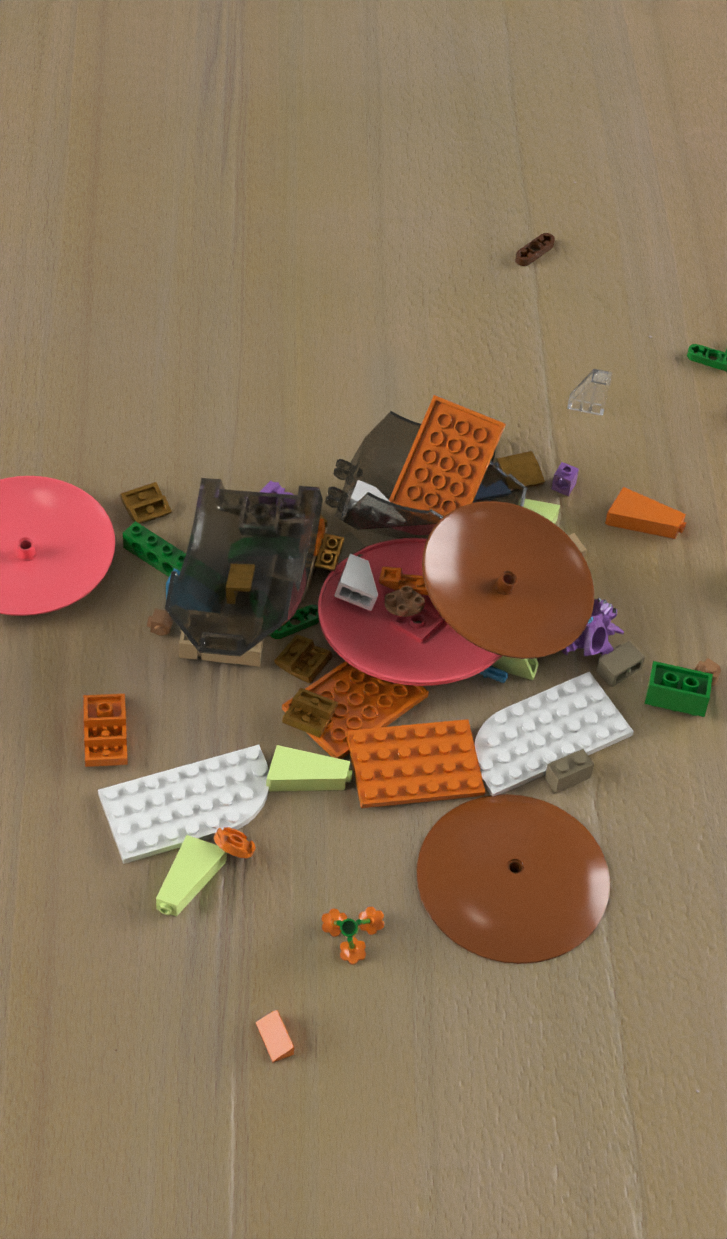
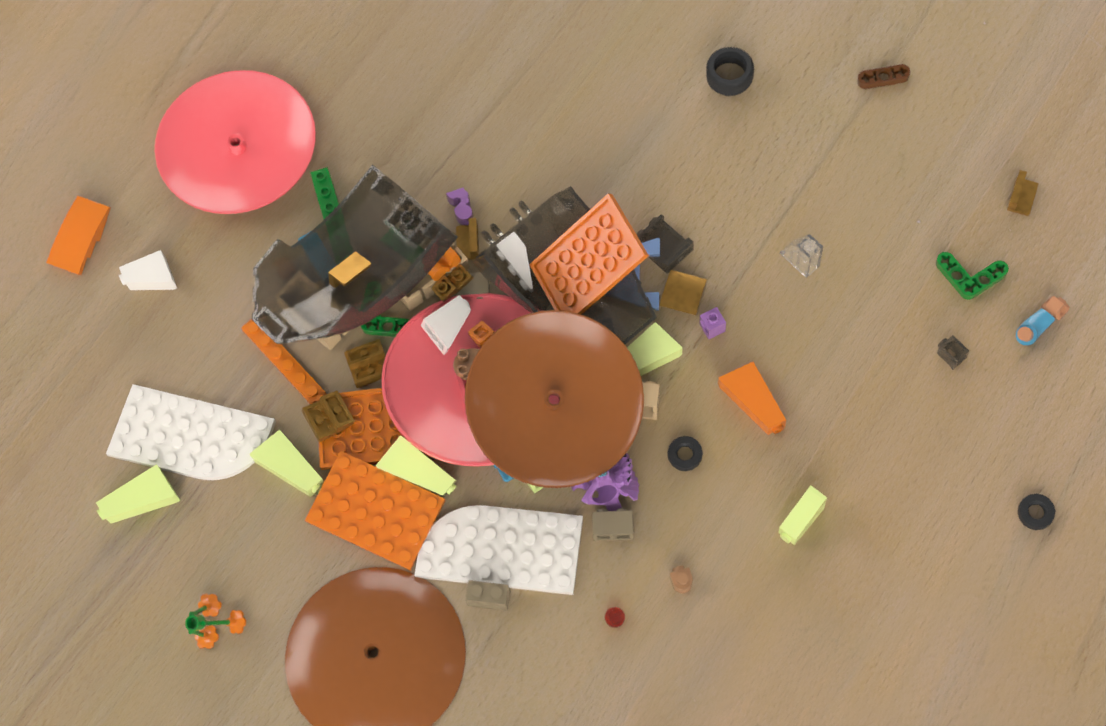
camera: 50 degrees right, 15 degrees up
(33, 692) = (148, 273): none -> white slope
(105, 730) = (176, 336): orange slope -> none
(145, 503) = (358, 152): pearl gold slope -> none
(223, 697) = (284, 362): none -> orange plate
(234, 842) = (187, 492): orange tile -> none
(275, 1036) = (98, 668): slope -> none
(414, 308) = (725, 56): none -> black tyre
(419, 706) = (414, 466): none -> yellowish green slope
(626, 593) = (685, 465): none -> black tyre
(678, 689) = (639, 579): green slope -> none
(681, 730) = (614, 617): none -> clear red plate
(708, 281) = (1022, 195): none -> pearl gold panel

